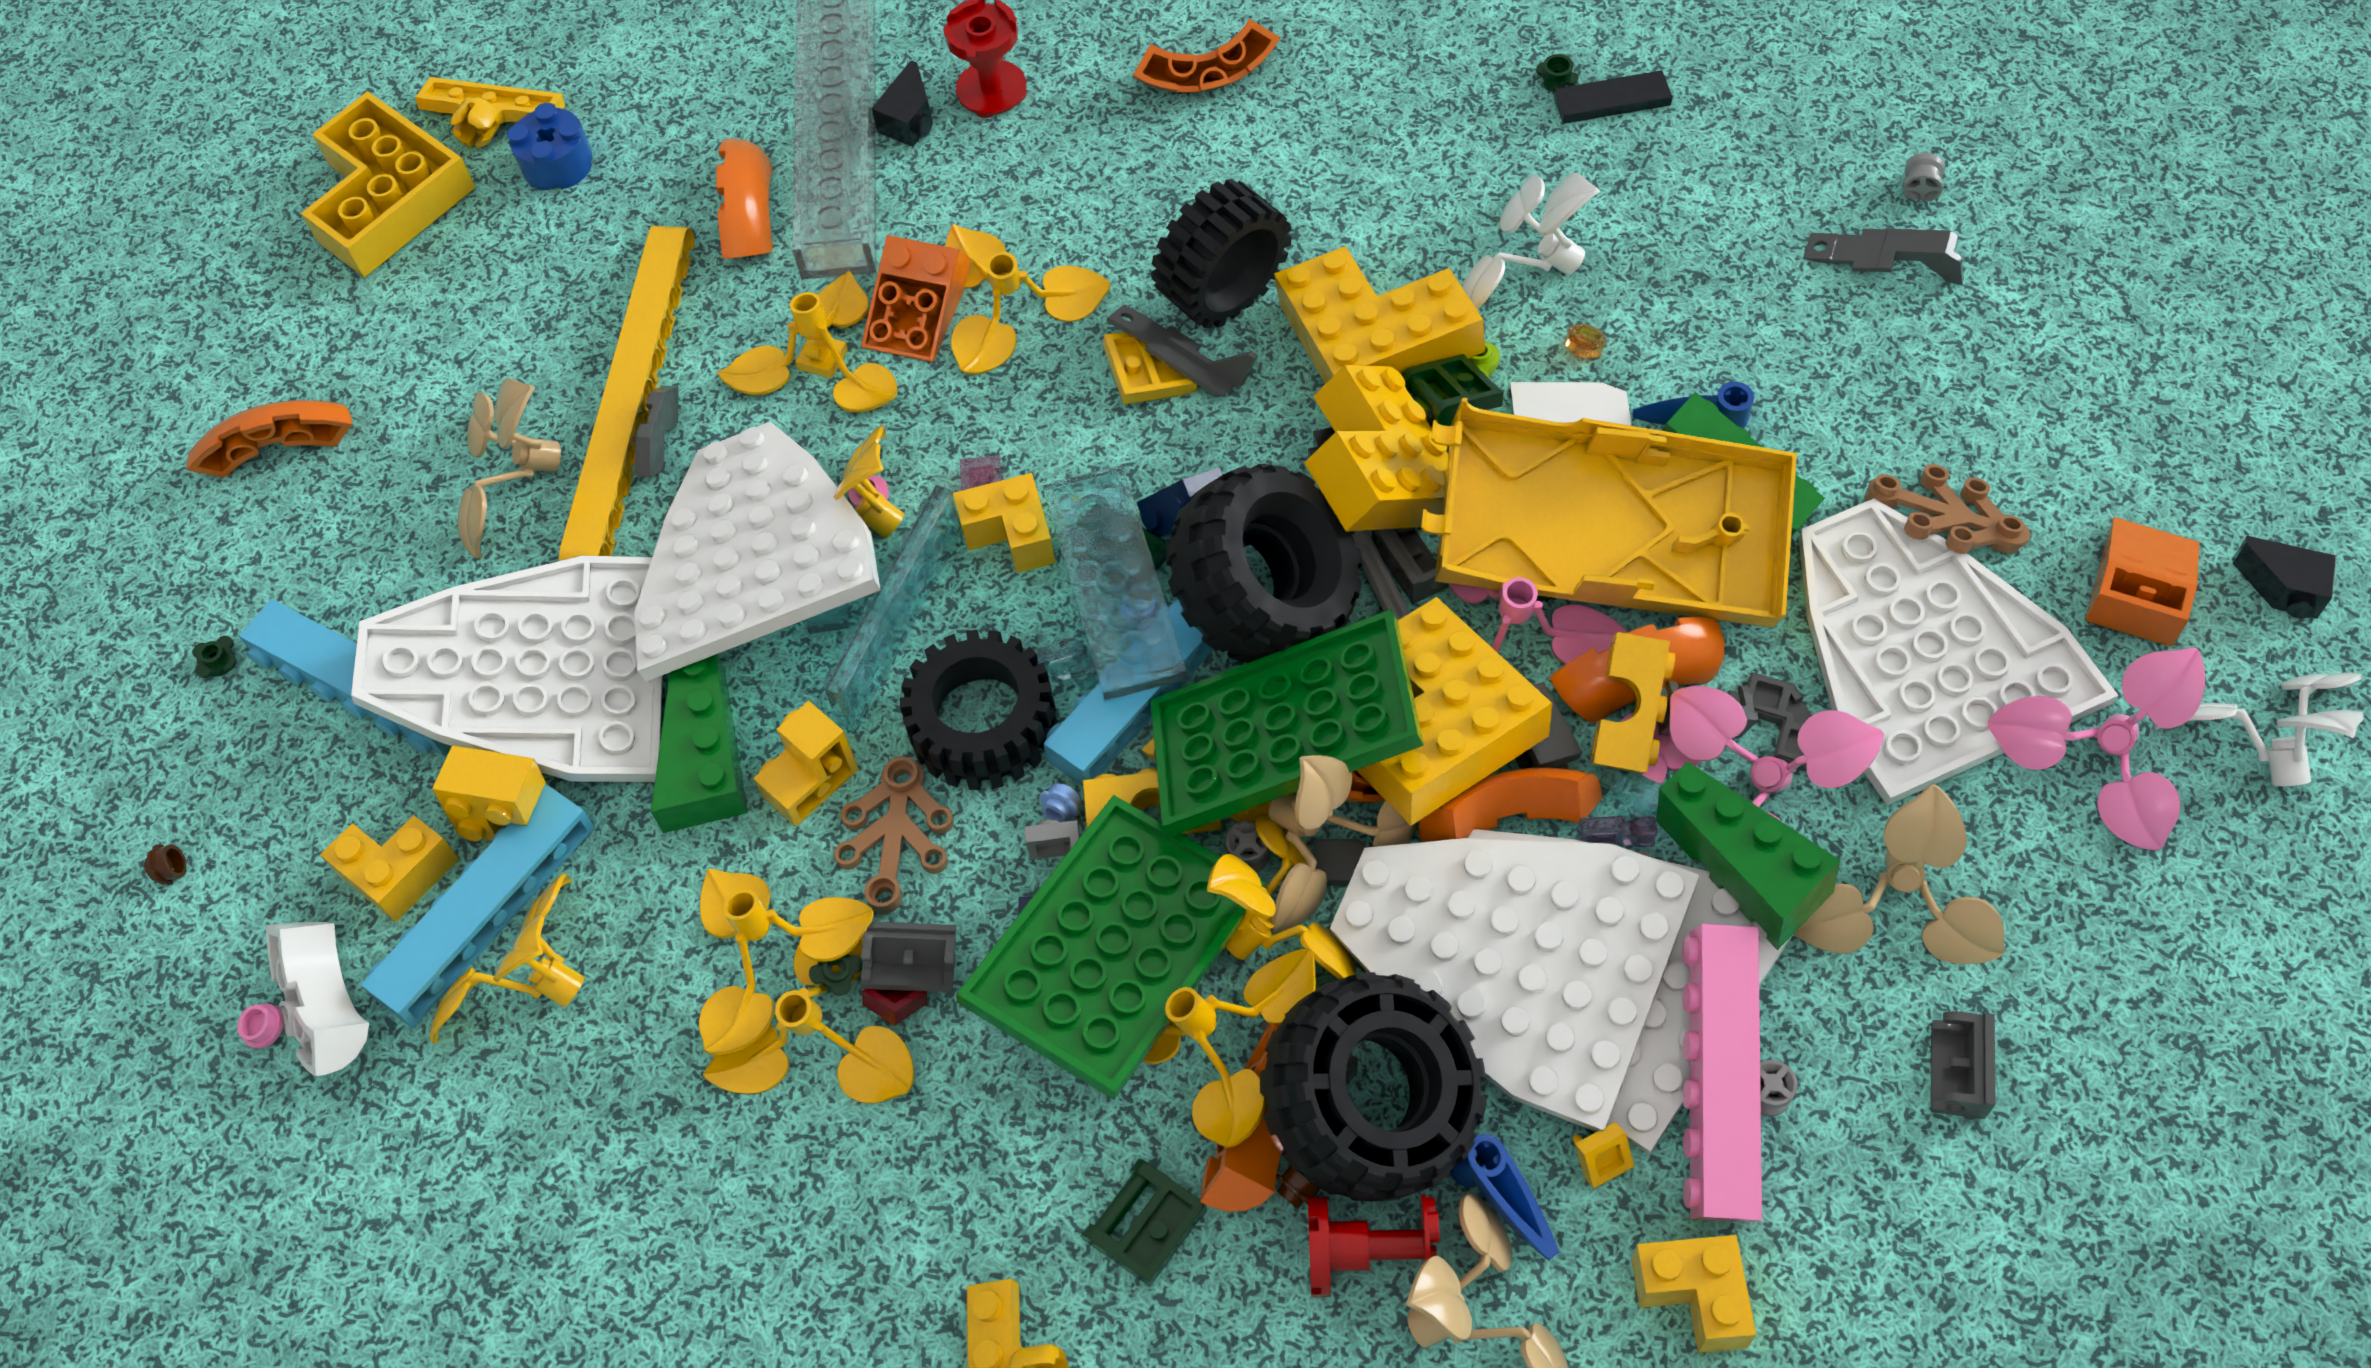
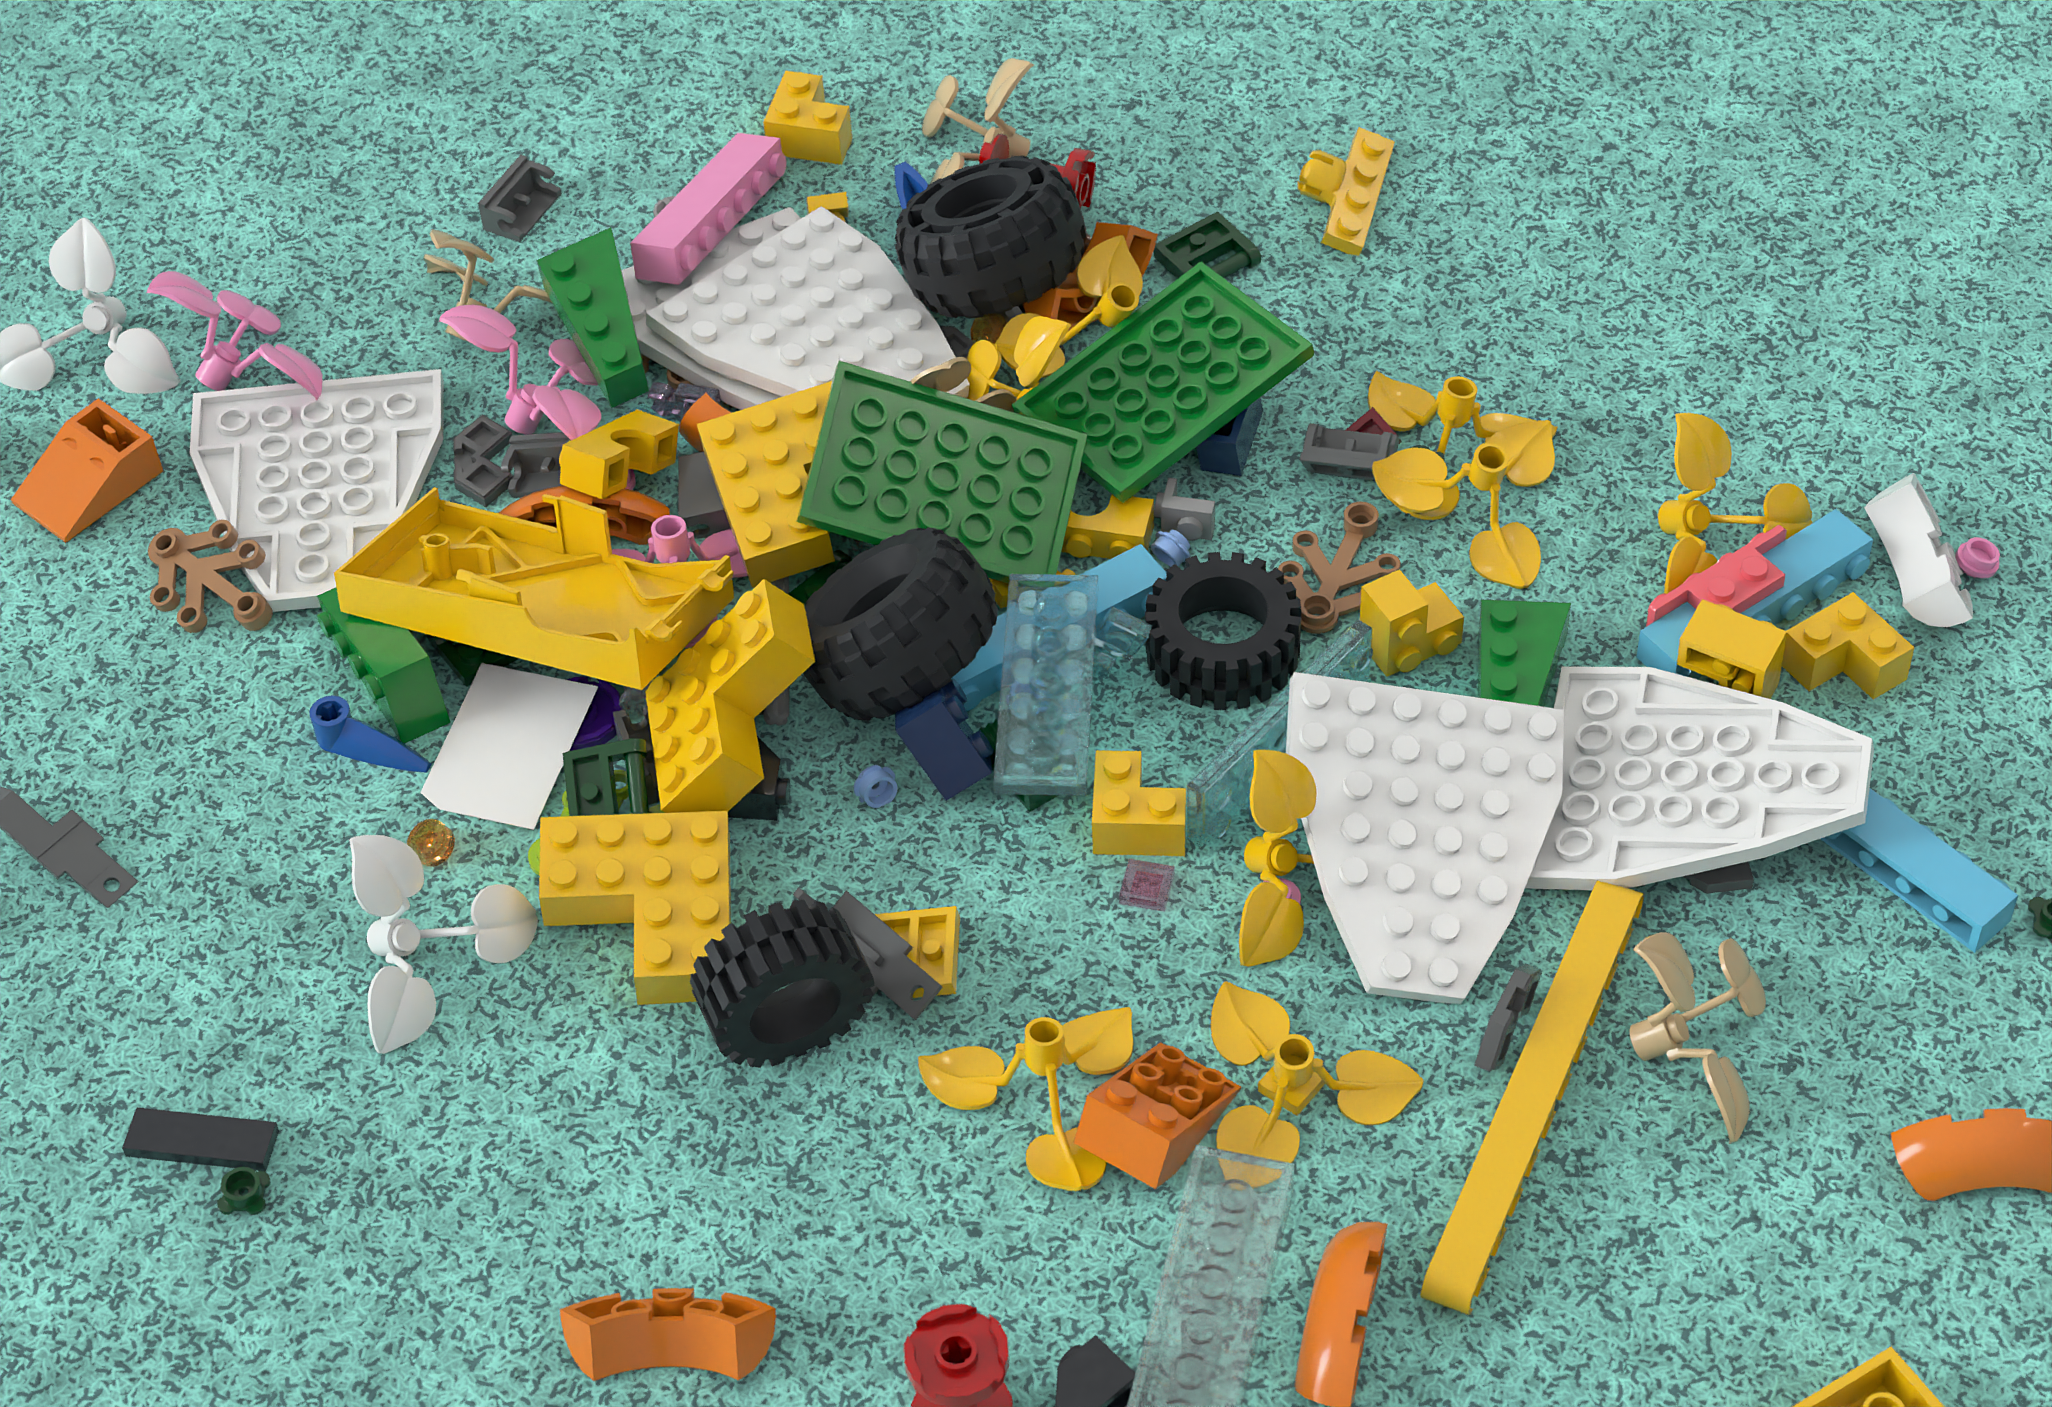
camera: 165 degrees left, 10 degrees down
(501, 885) = (1734, 581): none -> coral bracket

